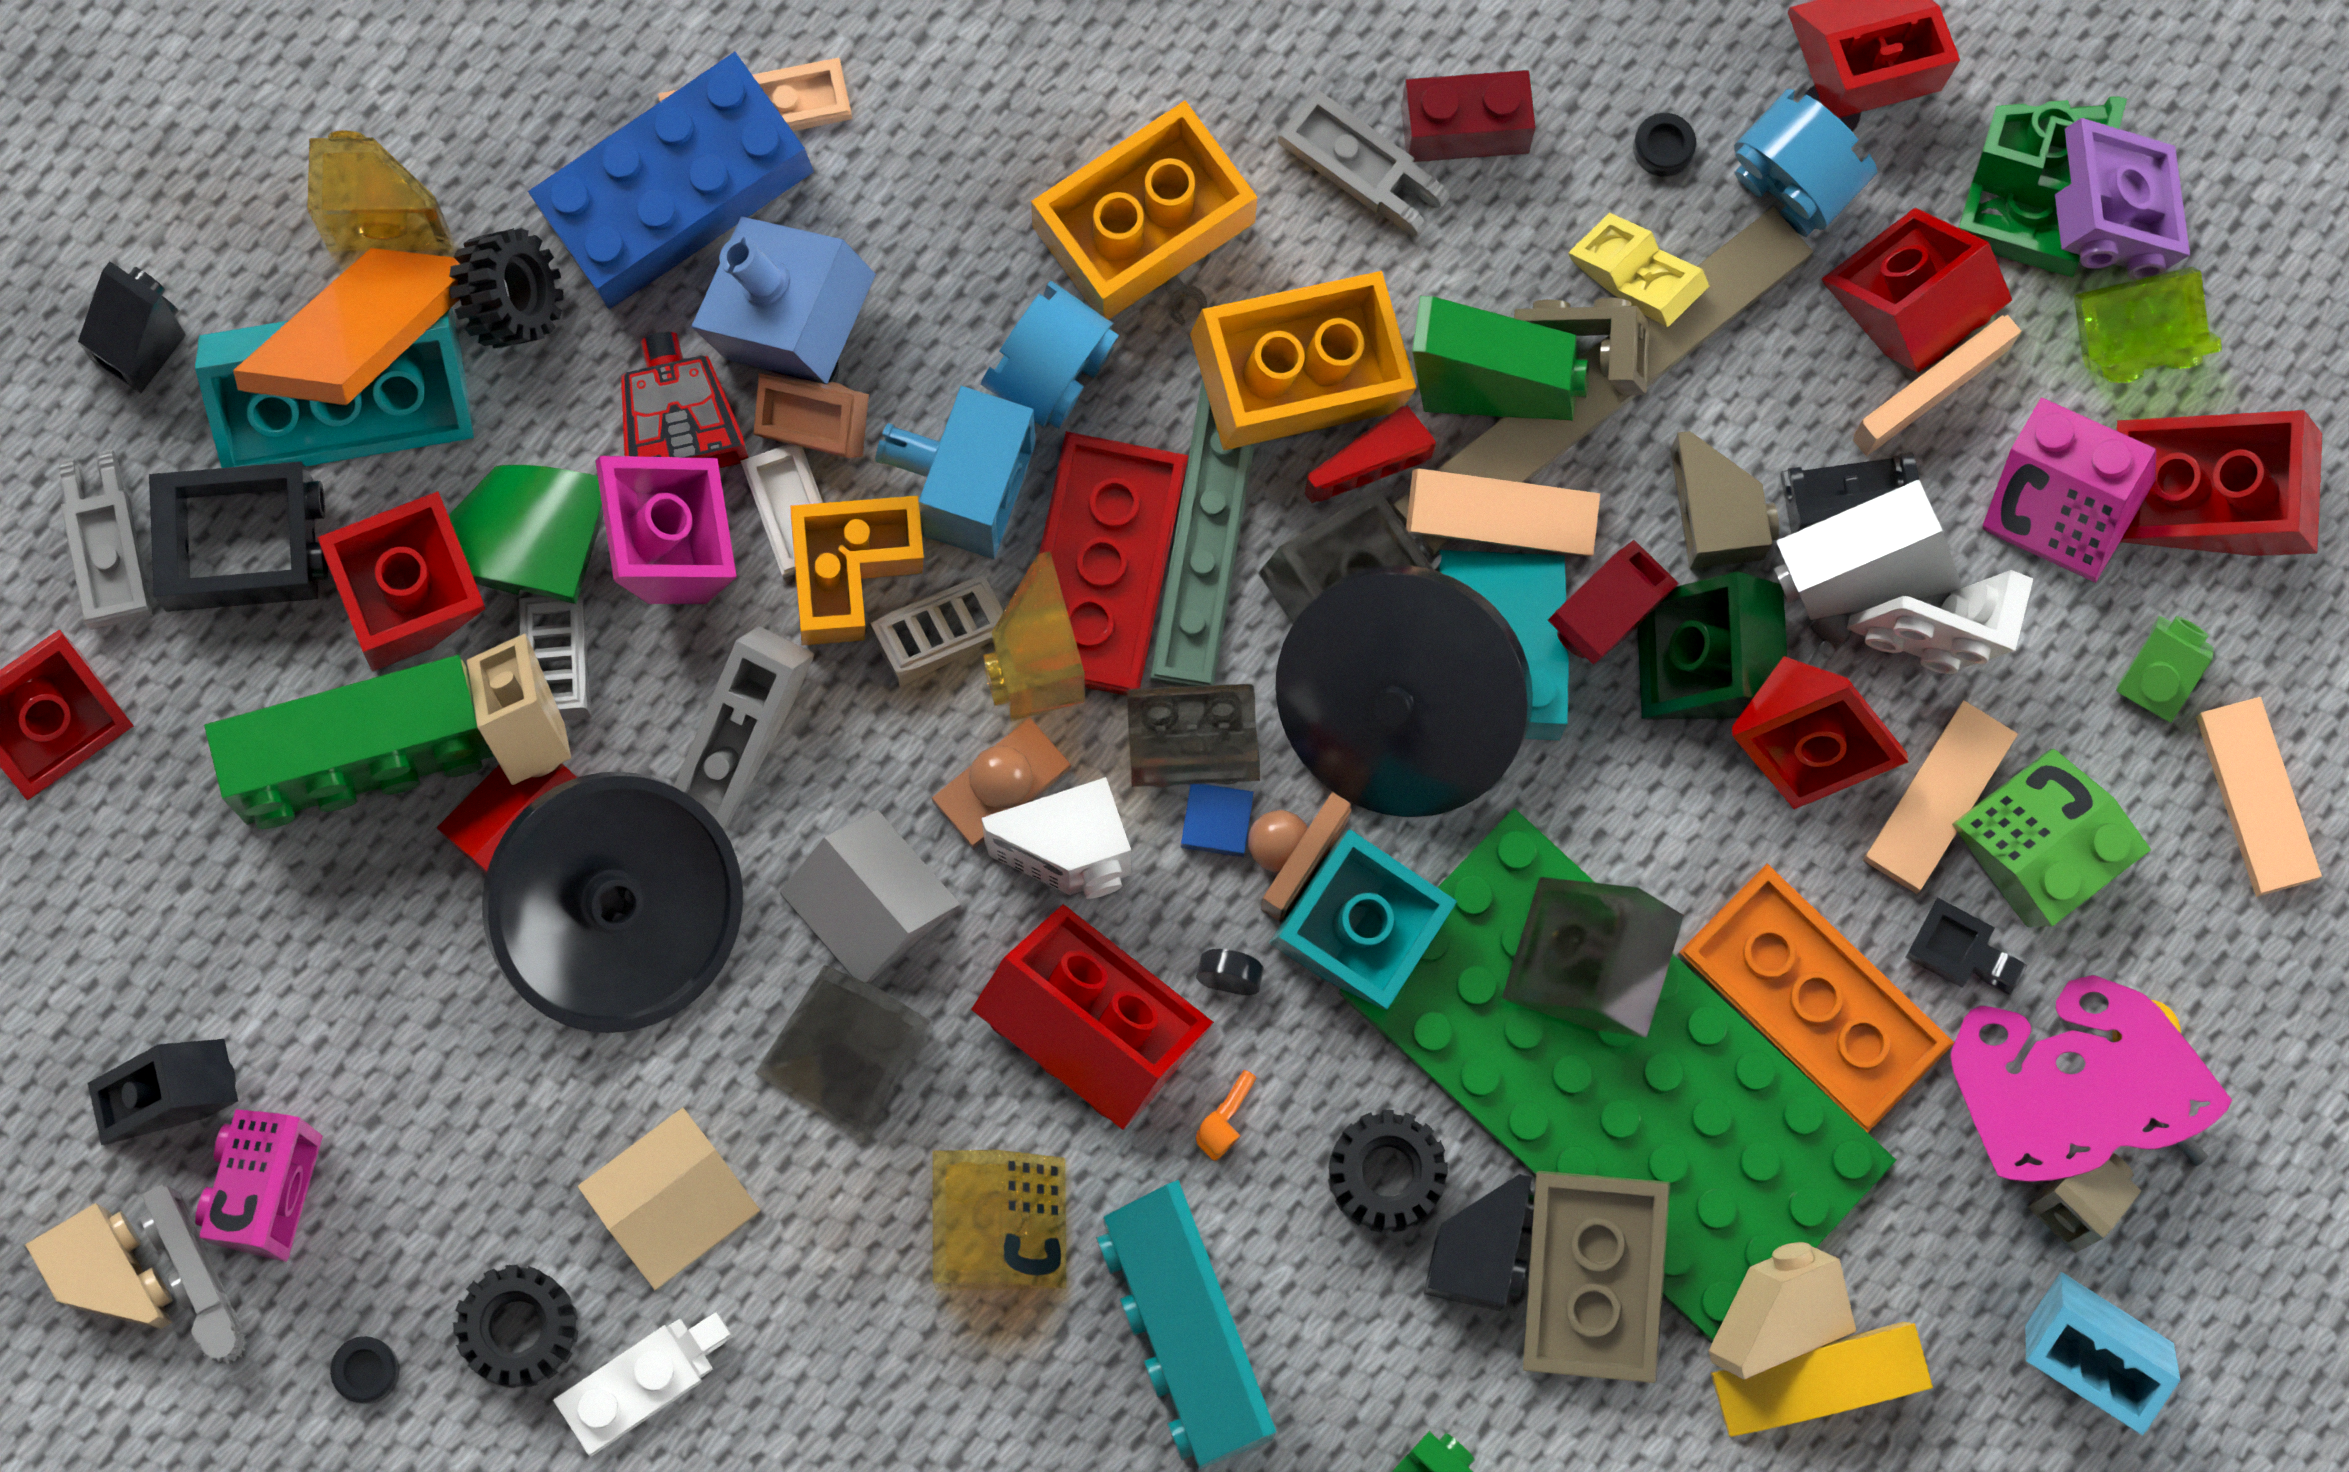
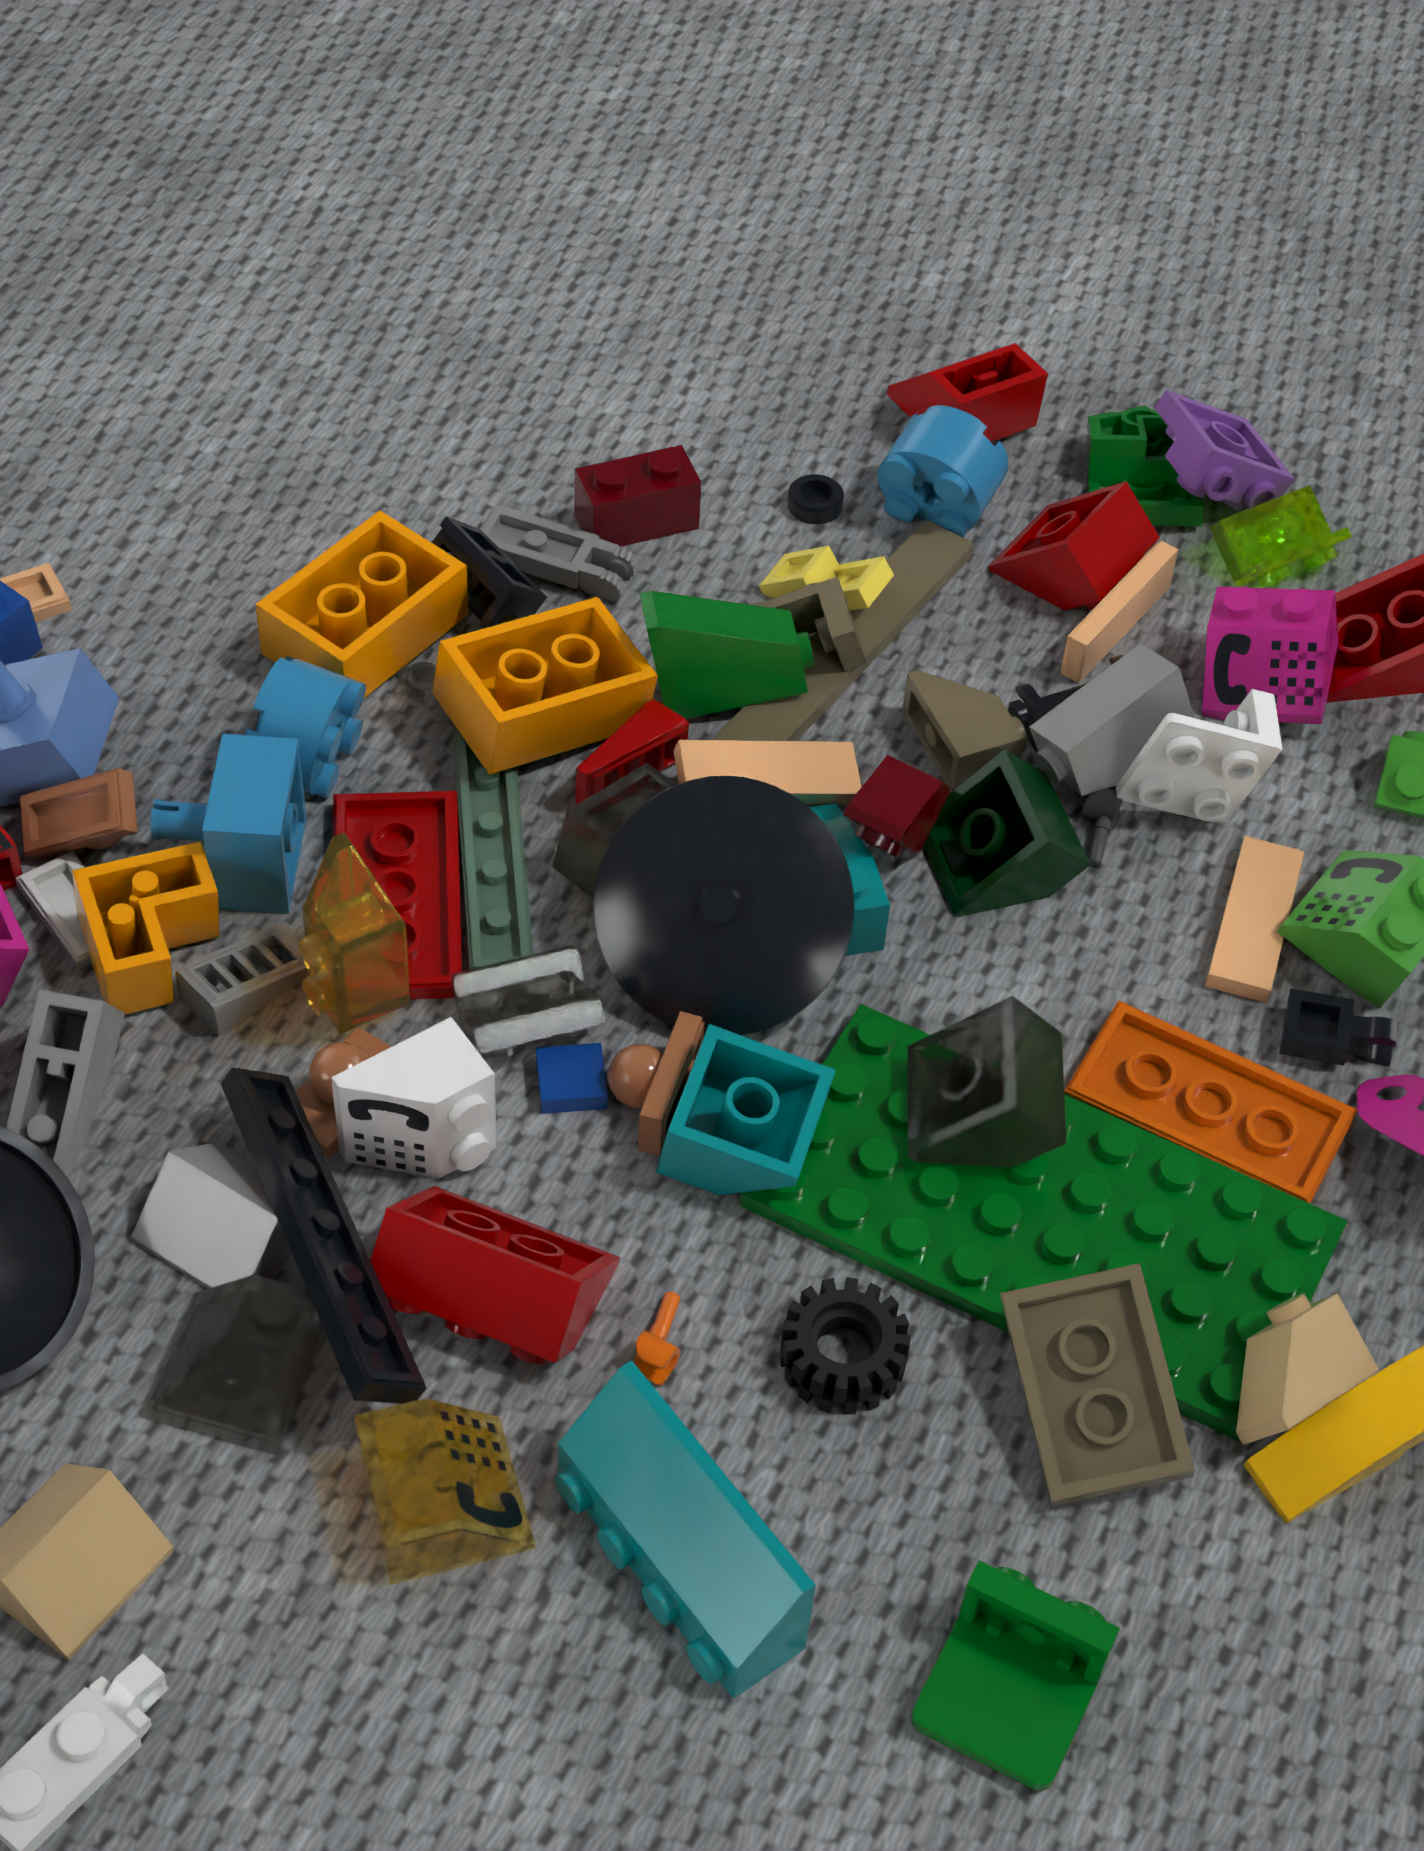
camera: 15 degrees left, 25 degrees down
(943, 955) = (323, 1239): none -> black tile
(1230, 971) = (624, 1200): black tile -> none
(1284, 194) = (494, 583): none -> black hinge
(1478, 1248) = (965, 1396): black slope -> none
(1814, 734) = (1128, 866): red slope -> none

